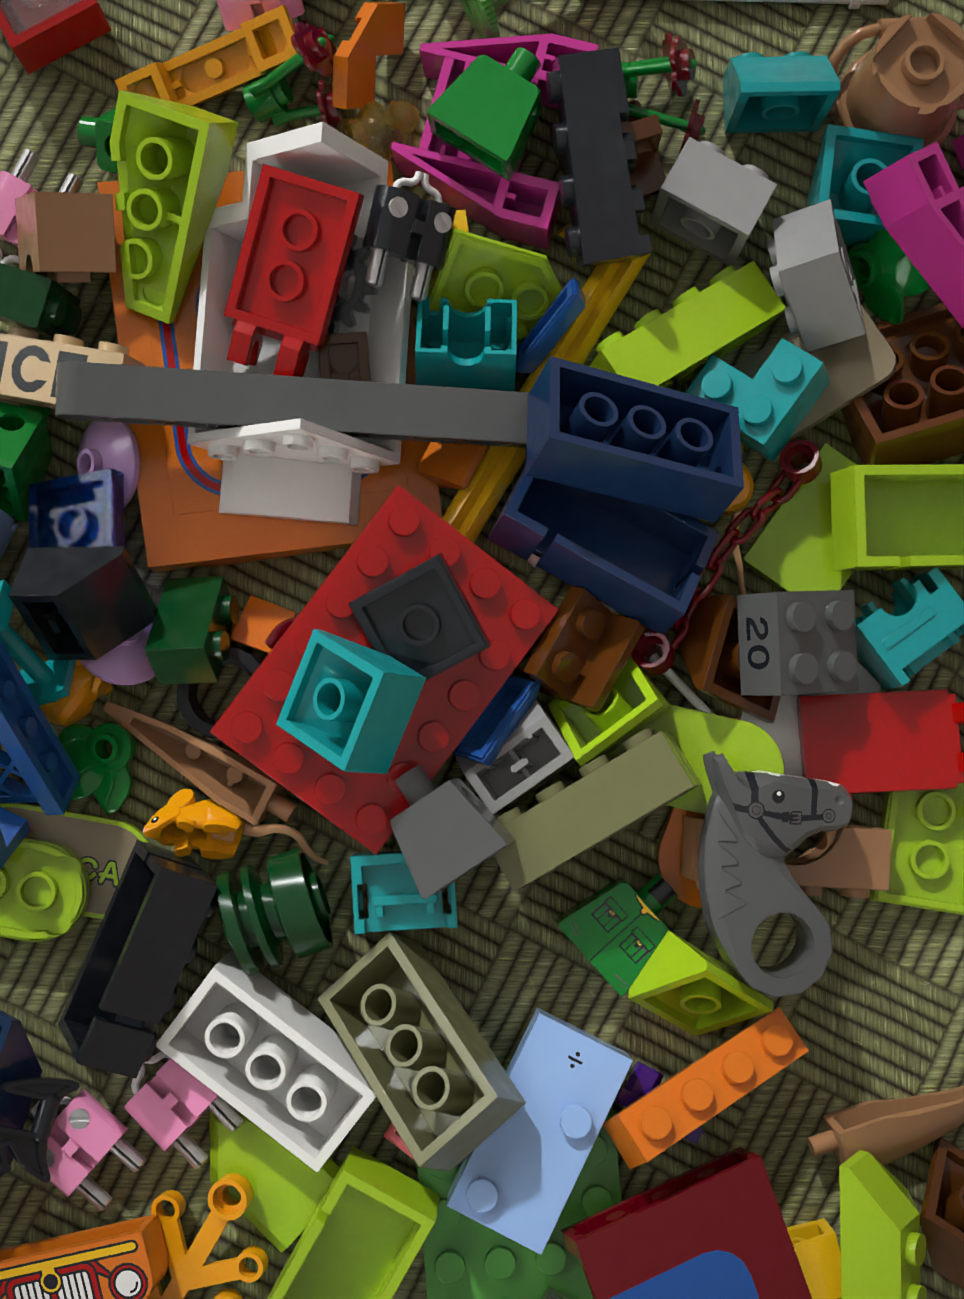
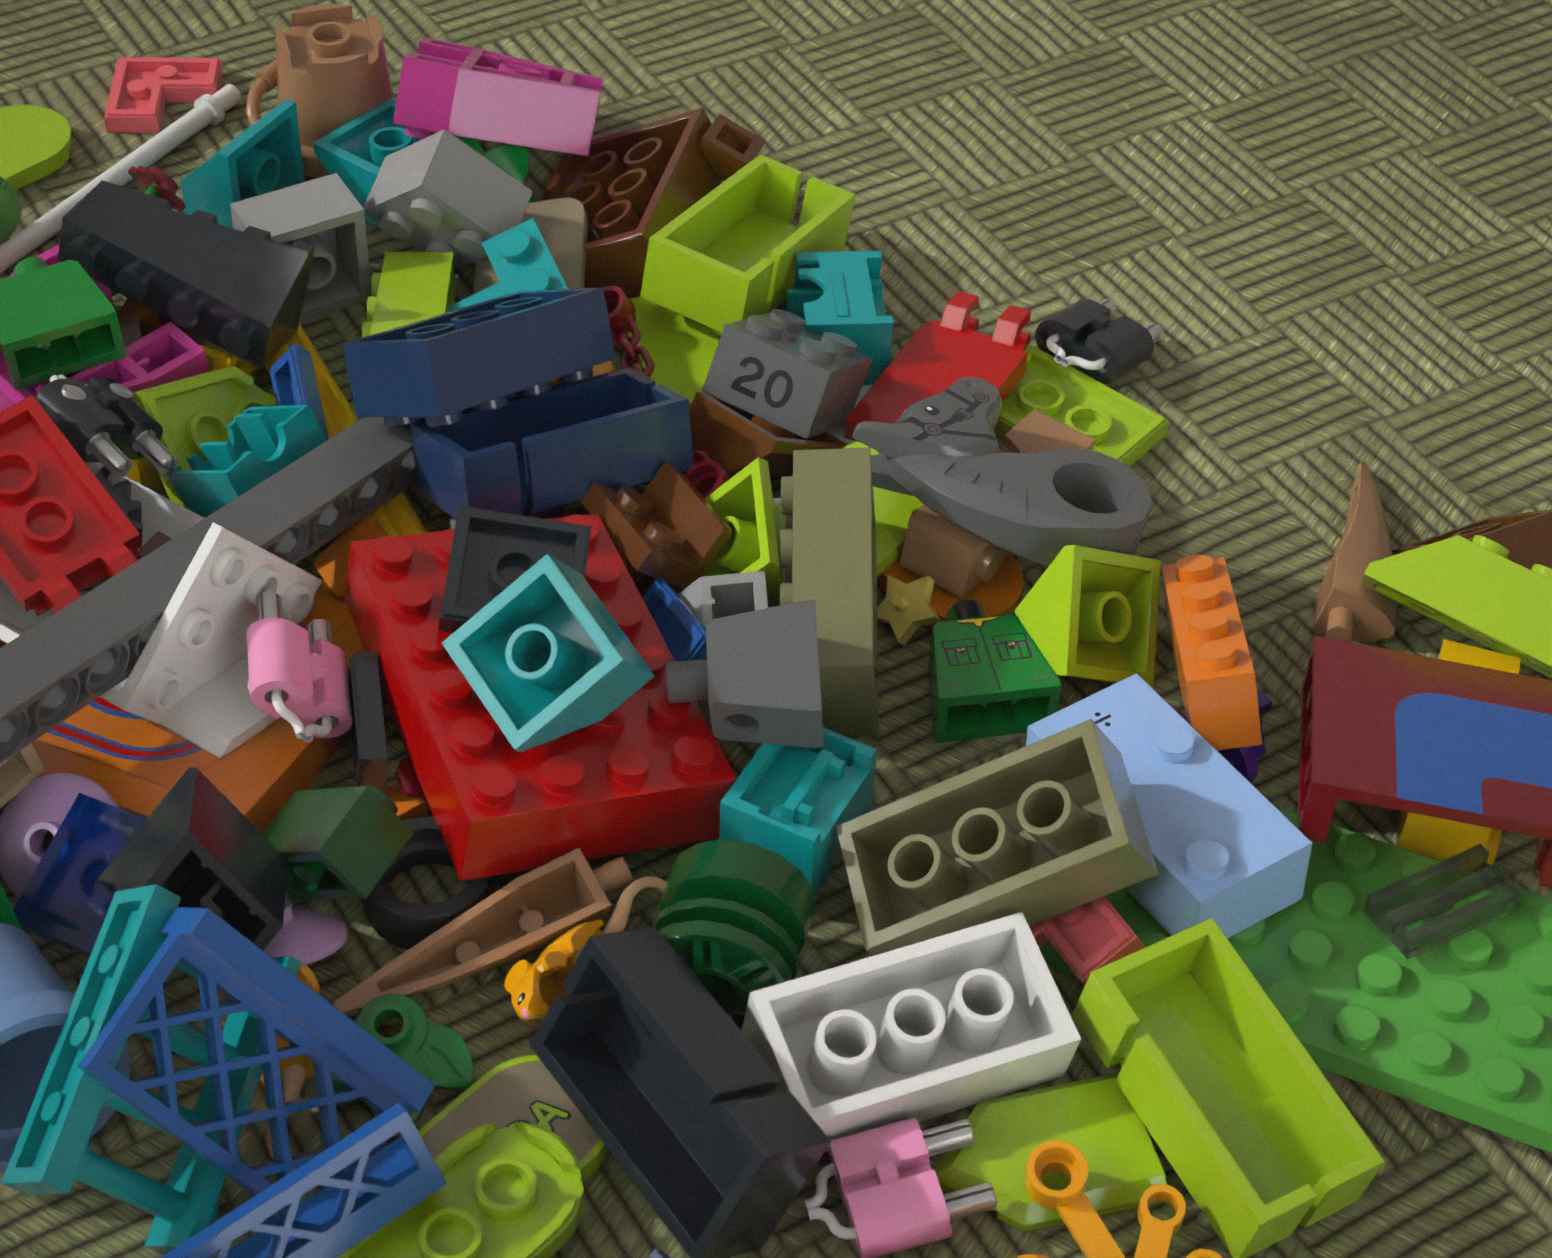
camera: 55 degrees left, 40 degrees down
(292, 522) = (298, 673): none -> bright pink piece
(298, 582) = (368, 726): none -> black tile
(652, 841) = (907, 607): none -> light yellow piece

